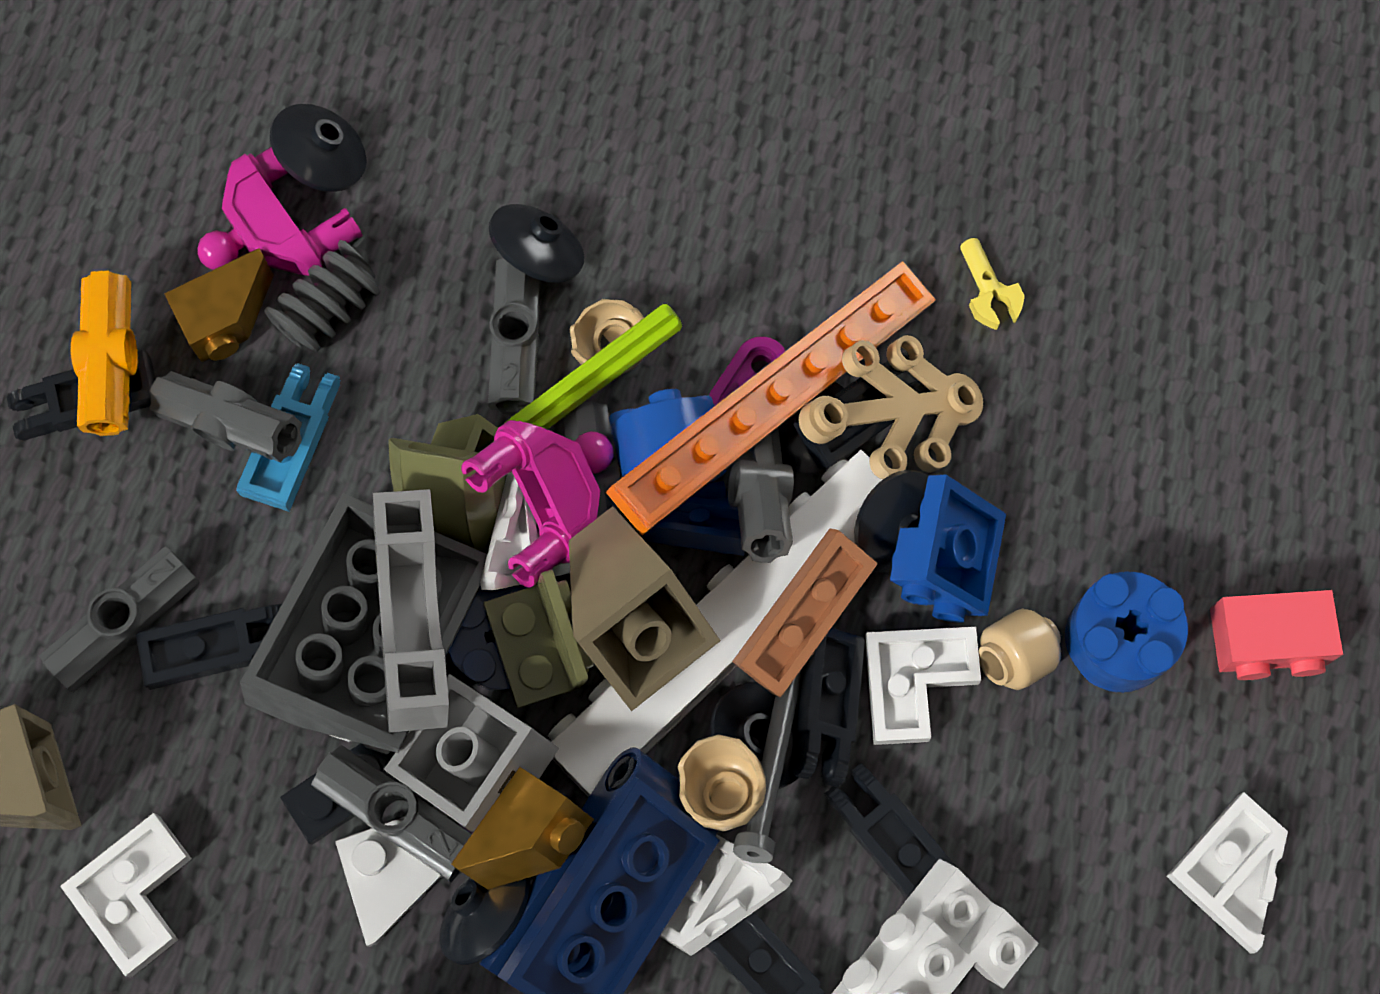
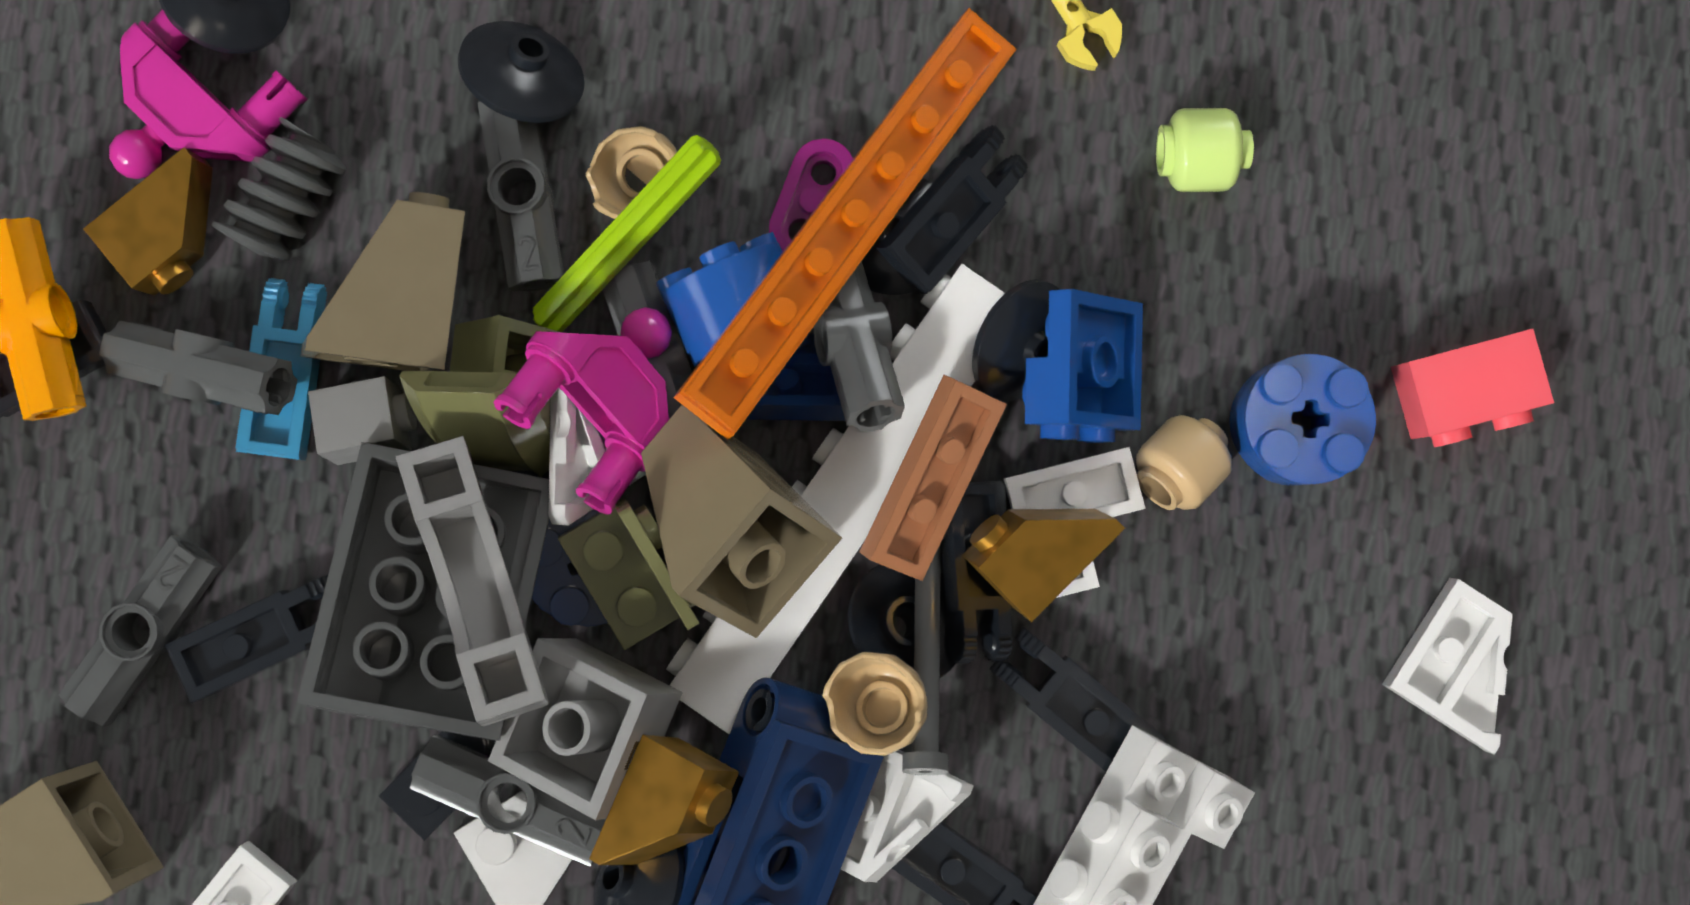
camera: 15 degrees left, 15 degrees up
(340, 472) = (357, 413): none -> light grey brick
(395, 384) = (398, 293): none -> dark tan slope
(880, 691) = (1038, 552): none -> pearl gold slope
(902, 405) = (1003, 199): tan plant -> none
(1075, 402) = (1203, 149): none -> yellowish green head

